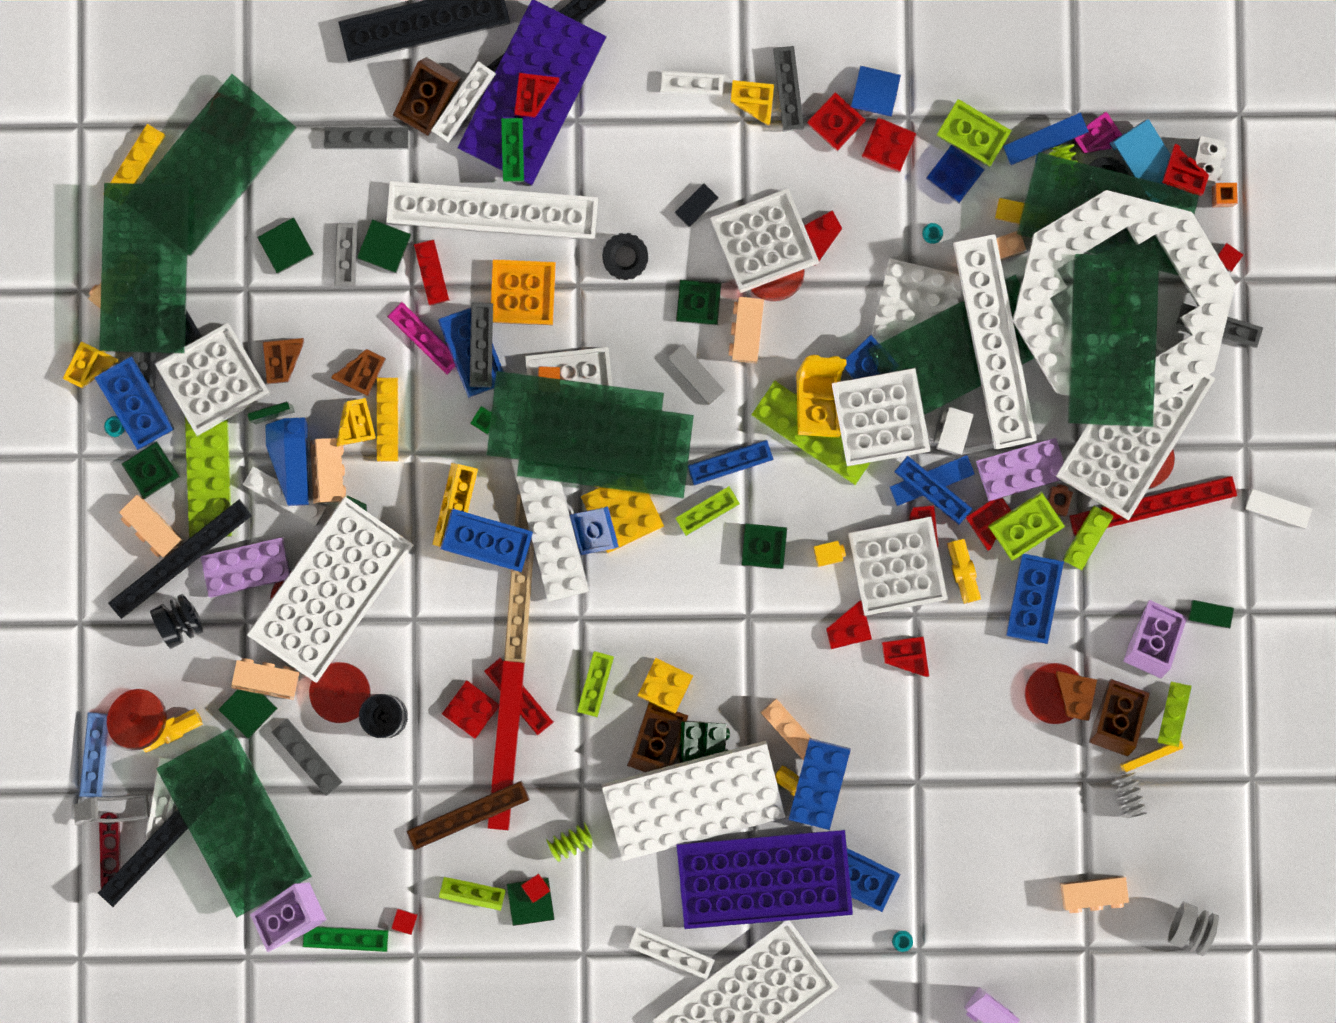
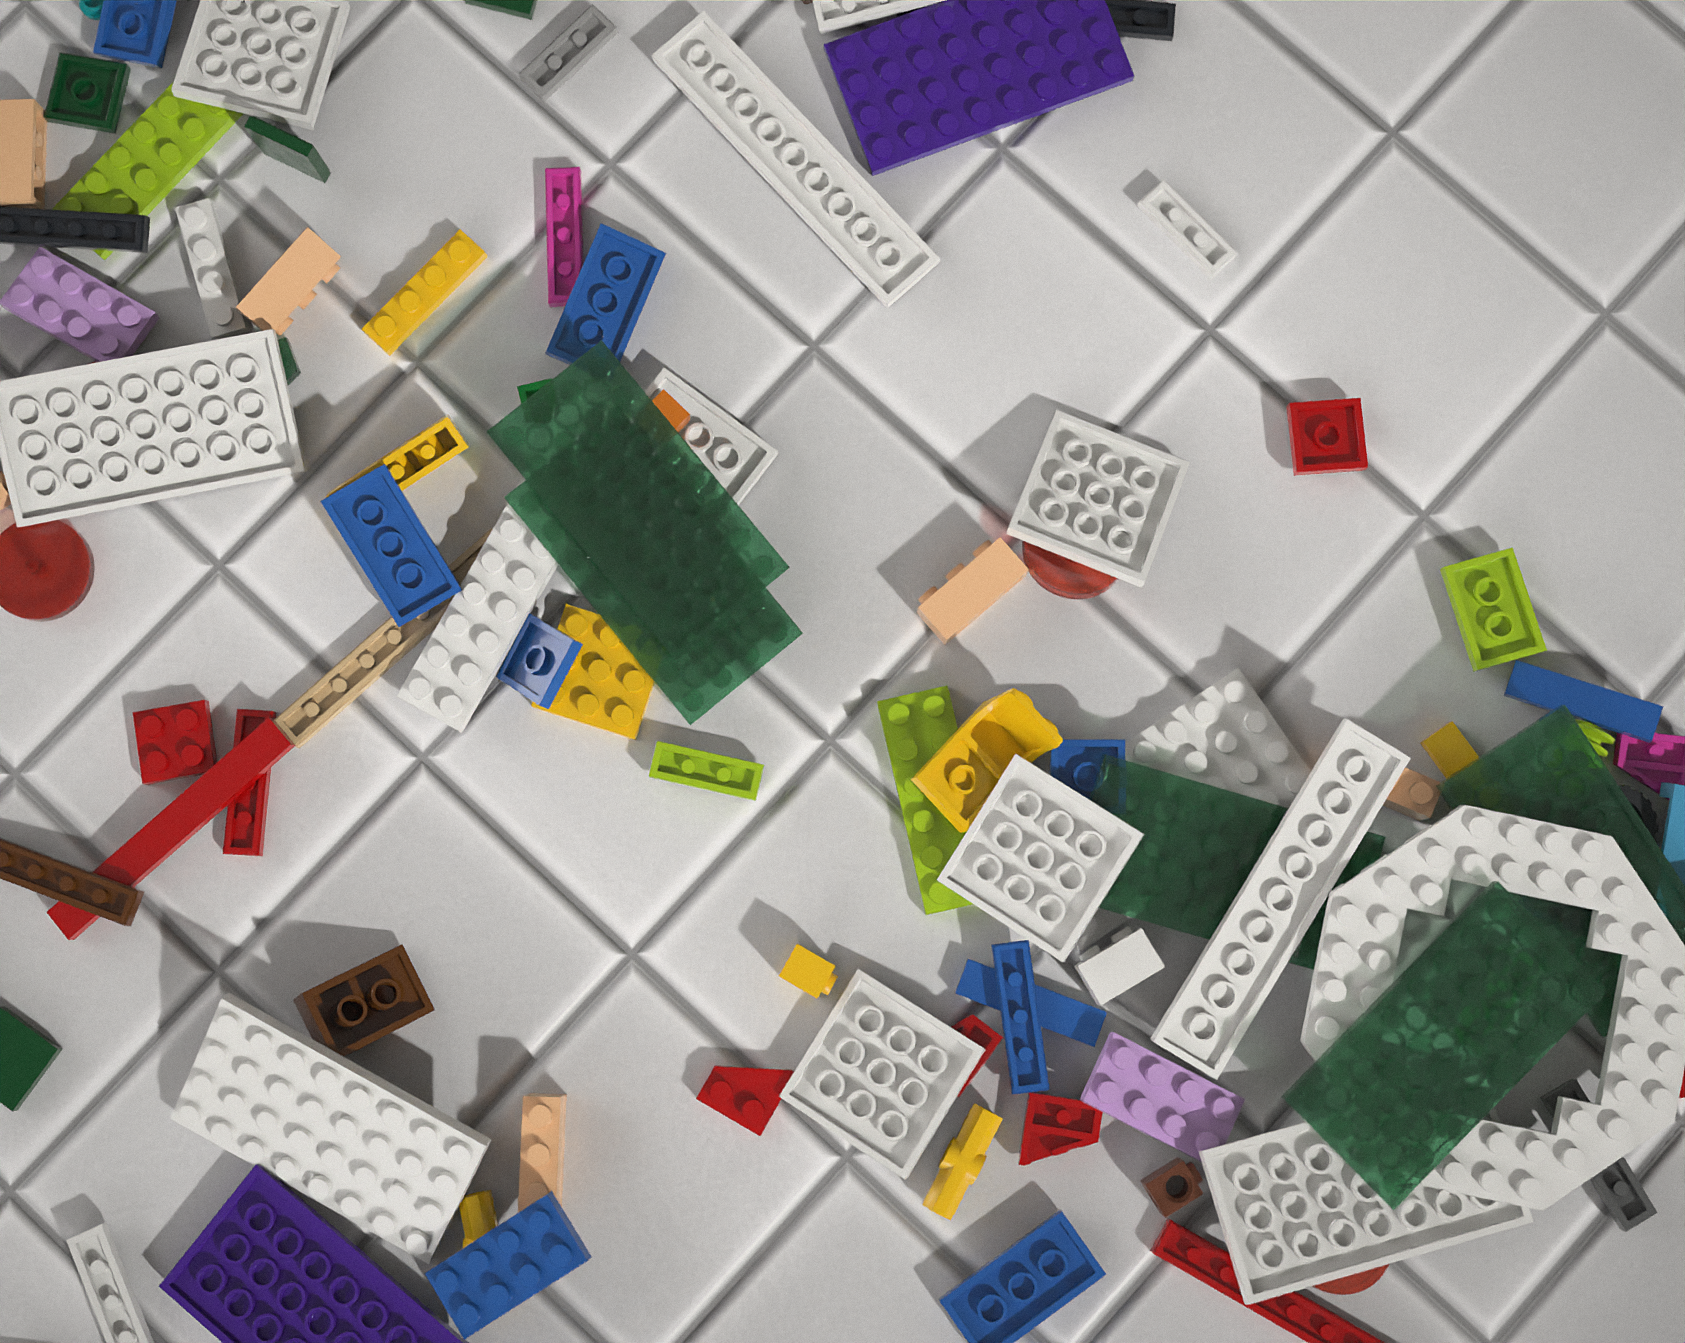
camera: 45 degrees right, 5 degrees down
(281, 359) = (368, 103): dark orange wing -> none
(289, 455) = (262, 226): blue wedge -> none
(355, 423) = (378, 258): yellow wing -> none
(361, 372) = (448, 205): dark orange wing -> none
(374, 708) = (38, 634): black wheel -> none
(384, 246) = (623, 84): dark green tile -> none
(431, 272) = (649, 166): red plate -> none
(481, 345) = (621, 299): dark grey plate -> none
(512, 149) = (887, 103): green plate -> none
(523, 292) = (736, 289): light orange plate -> none
(533, 93) = (977, 58): red wing -> none
(535, 888) = (27, 1047): red tile -> none
(570, 842) = (125, 1033): lime piece -> none
(595, 684) = (356, 857): lime plate -> none
(609, 256) = (898, 334): black tyre -> none
(665, 686) = (440, 943): yellow plate -> none
(696, 205) = (1053, 380): black tile -> none
(696, 374) = (855, 587): light grey tile -> none
(698, 302) = (943, 501): dark green tile -> none
(702, 739) = (417, 1060): dark green plate -> none
(730, 462) = (794, 737): blue tile -> none
(753, 98) = (1247, 315): yellow wing -> none
(764, 546) = (735, 884): dark green plate -> none
(788, 88) = (1303, 342): dark grey plate -> none
(823, 232) = (1181, 559): red wing -> none
(875, 91) = (1413, 443): blue slope -> none
(889, 145) = (1368, 526): red plate -> none
(907, 655) = (786, 1201): red wing -> none
(932, 233) = (1322, 687): teal plate -> none
(955, 174) = (1421, 639): clear blue plate -> none
(1026, 526) = (1100, 1181): lime tile -> none
(1087, 537) = (1167, 1272): lime plate -> none

